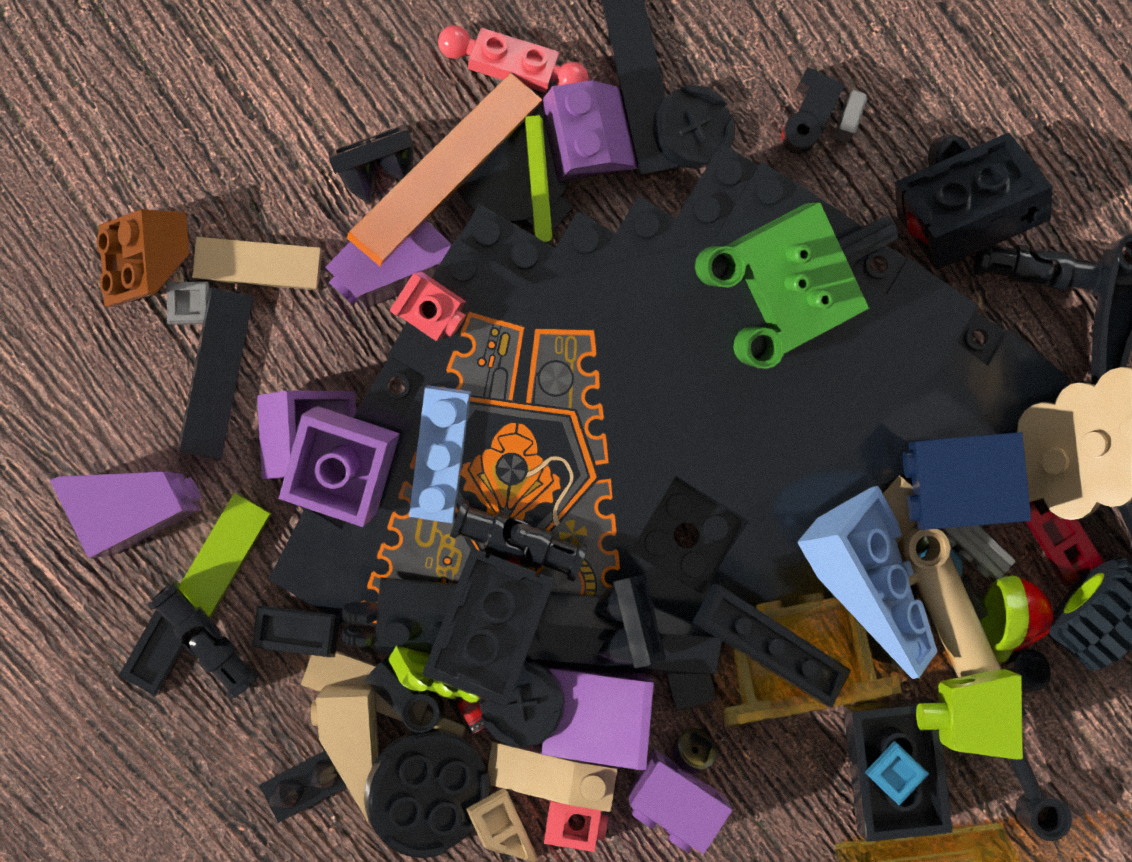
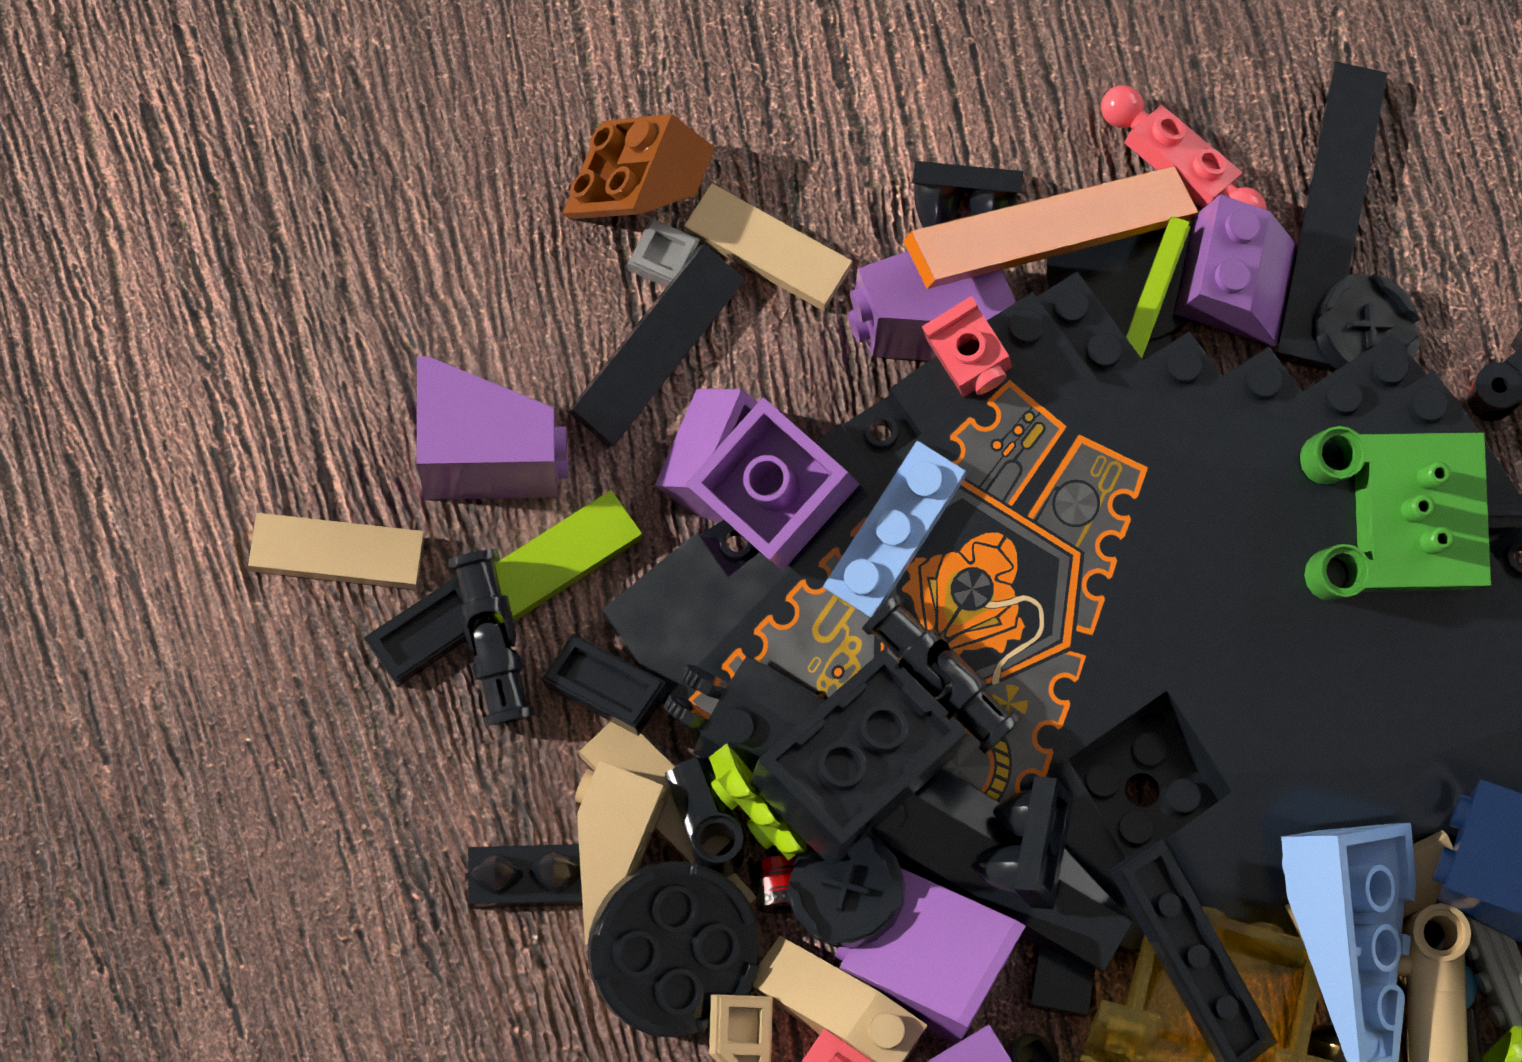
camera: 25 degrees right, 15 degrees down
(70, 623) = (336, 551): none -> tan tile

